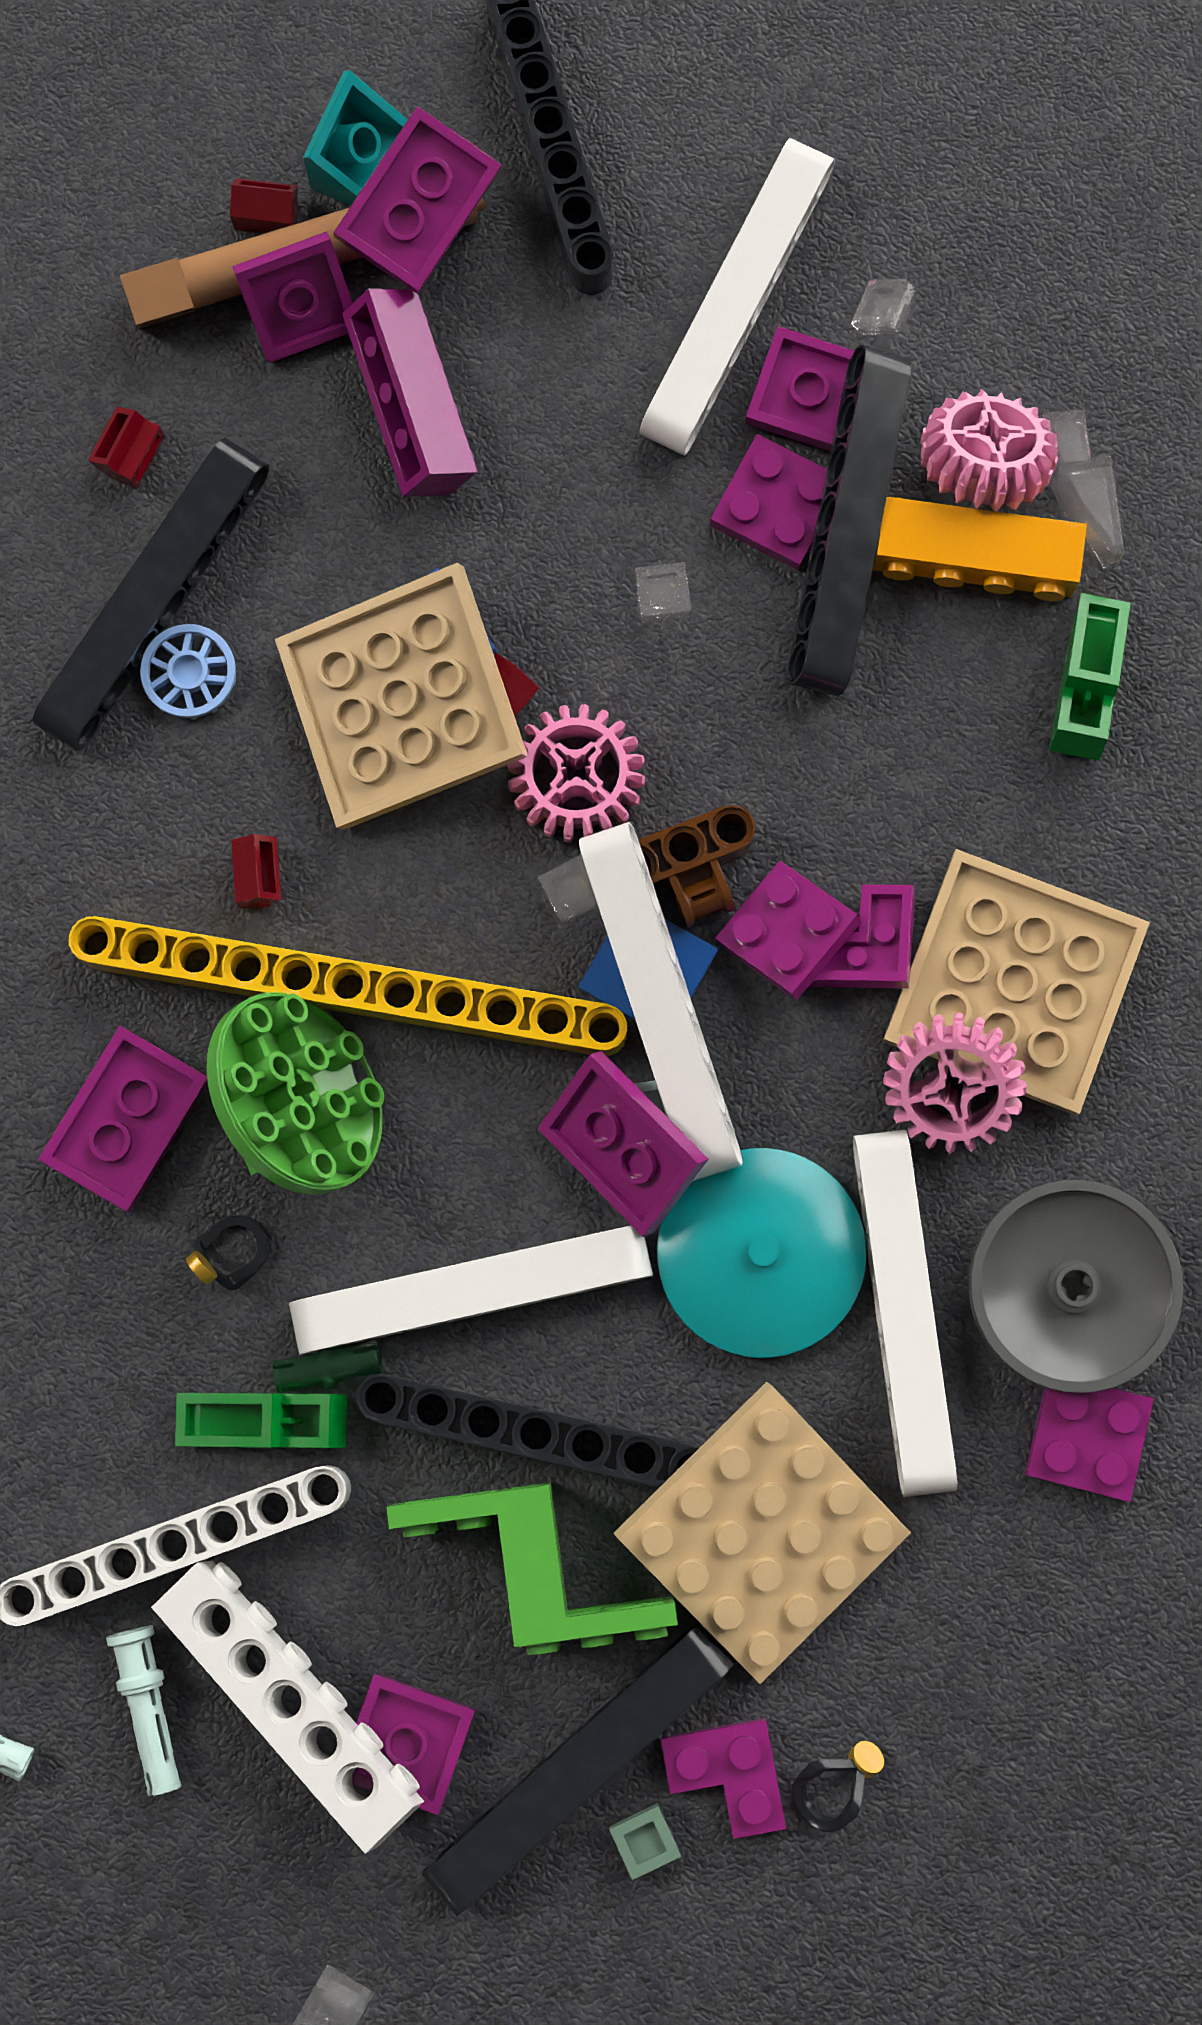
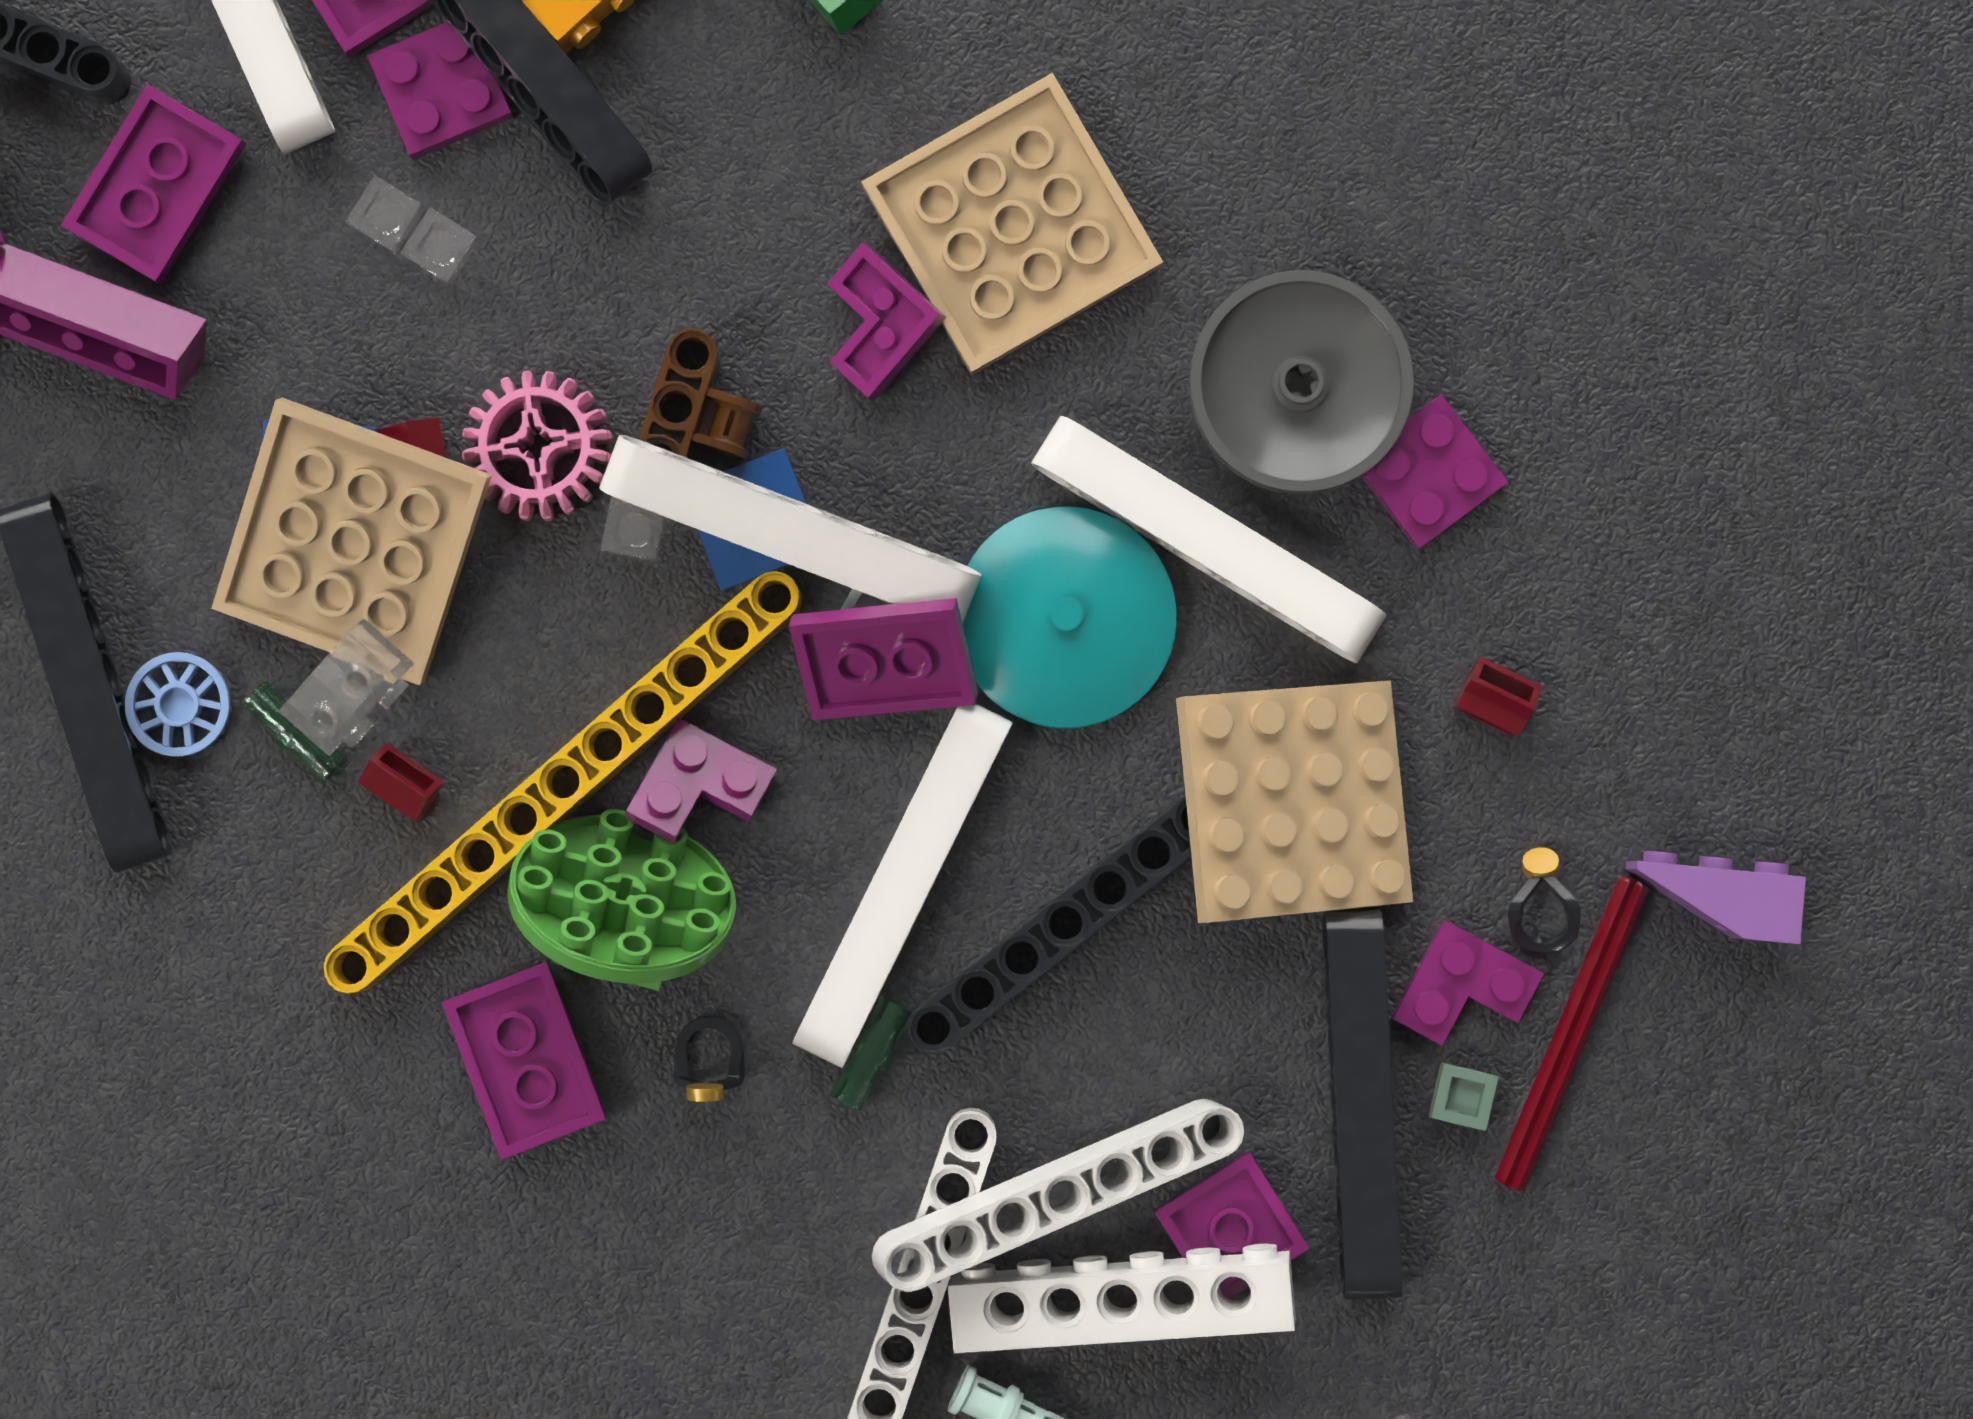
camera: 55 degrees left, 5 degrees up
(233, 767) = (266, 708): none -> clear green pin
(261, 1420) = (871, 1142): green slope -> none
(293, 778) = (347, 687): none -> clear brick
(343, 1613) = (1032, 1189): none -> white beam
(435, 1070) = (695, 767): none -> plate
(535, 1568) = (1175, 1010): bright green bracket -> none
(544, 362) = (153, 184): none -> magenta plate
(654, 536) = (385, 214): none -> clear plate
(758, 1887) = (1571, 1033): none -> dark red axle
(788, 930) = (815, 376): magenta plate -> none
(915, 1096) = (1041, 385): bright pink gear -> none
(958, 1937) = (1736, 902): none -> medium lavender slope
(964, 1624) = (1497, 697): none -> dark red piece

